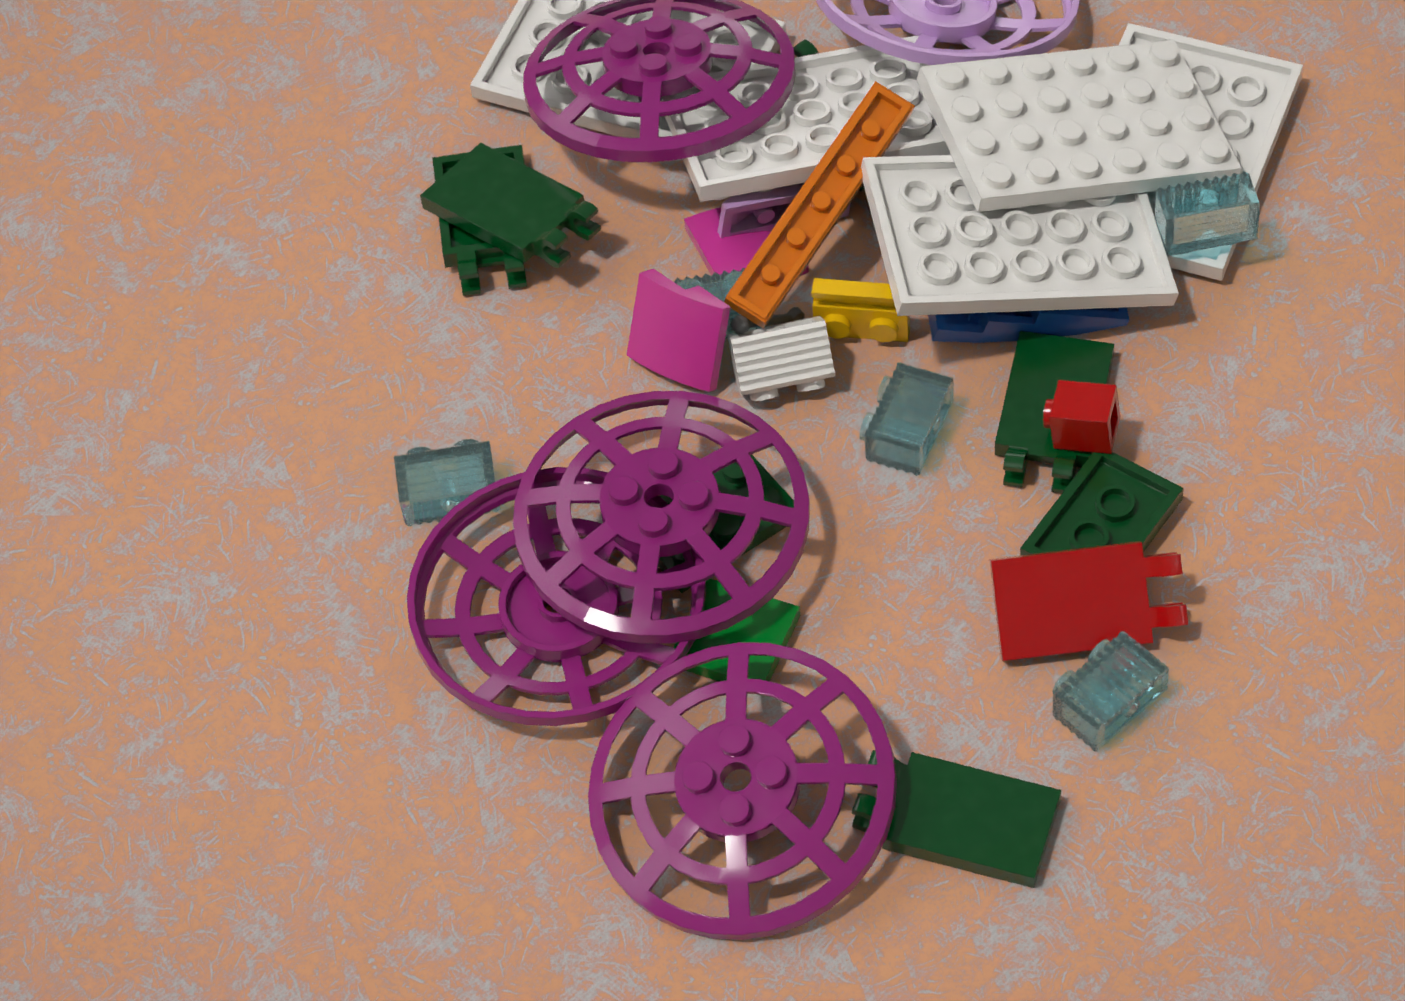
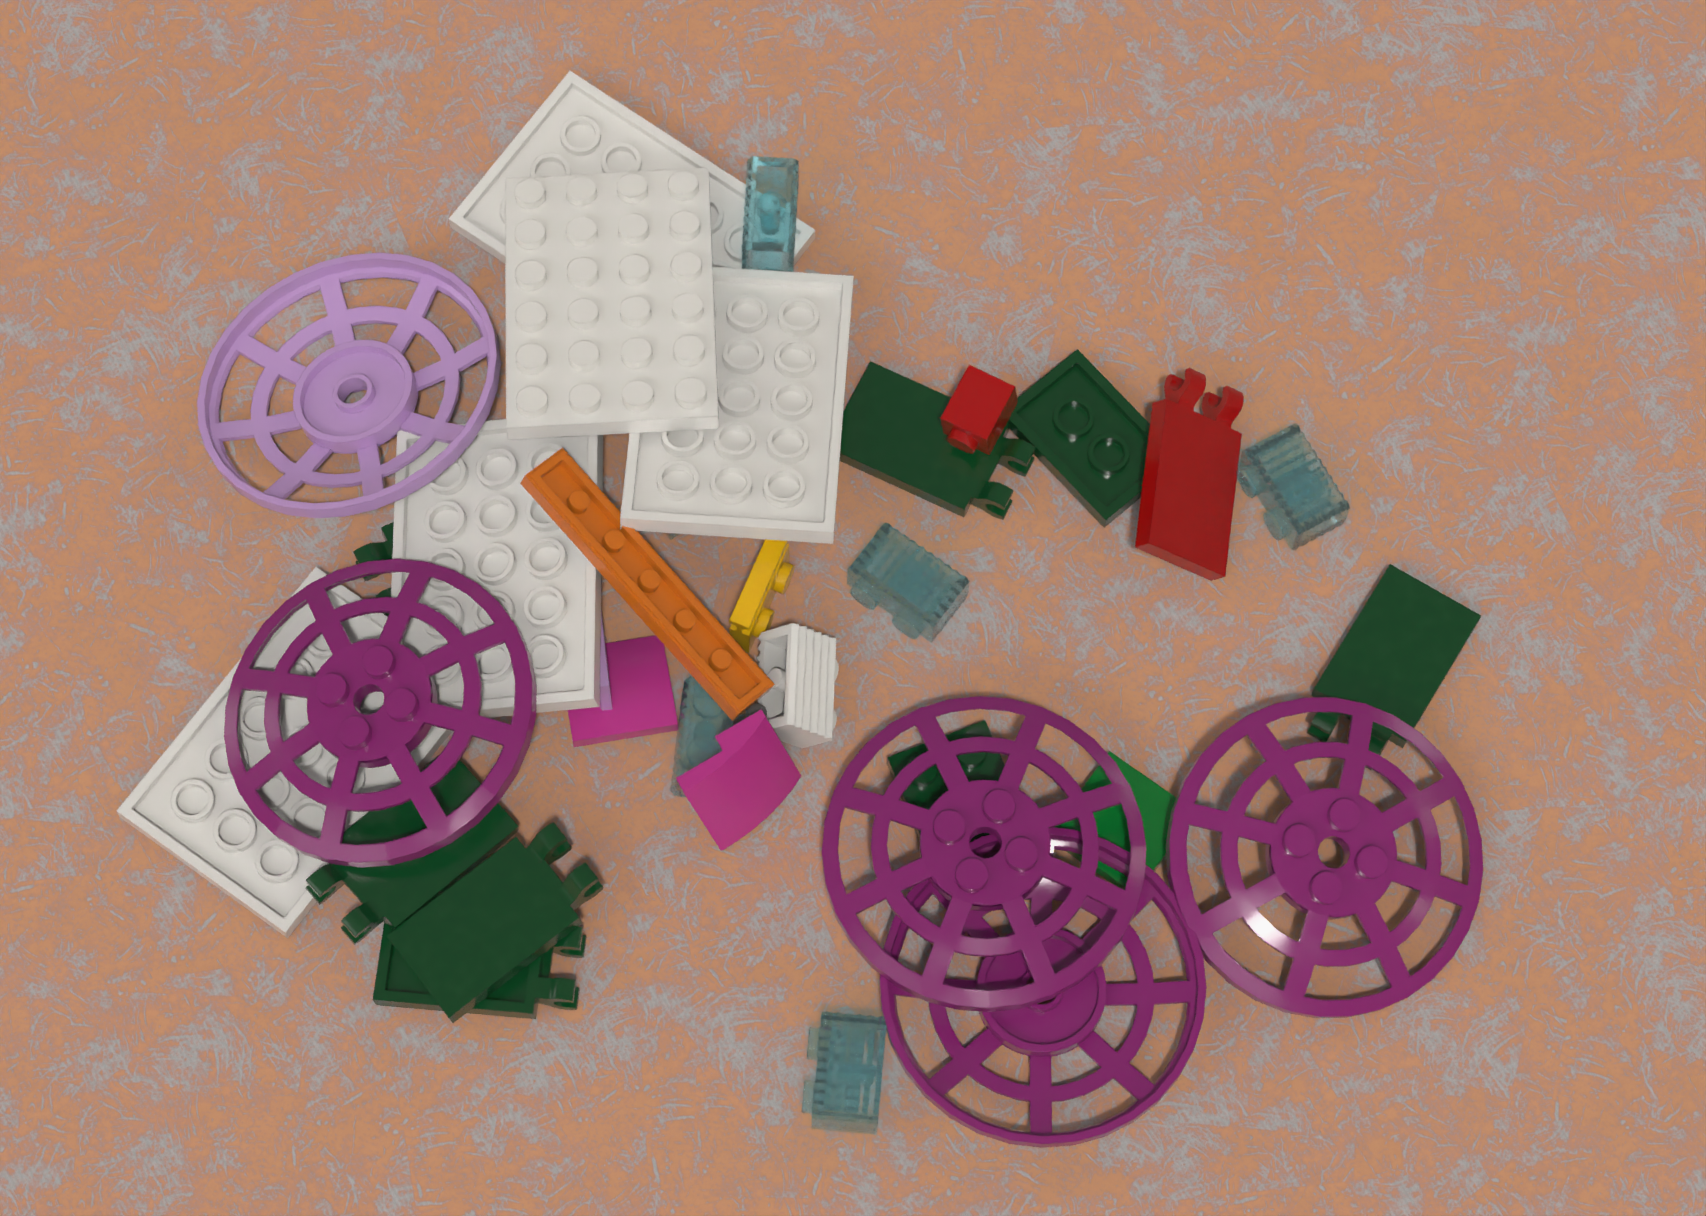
camera: 85 degrees left, 15 degrees up
(522, 140) = (405, 888): none -> dark green tile

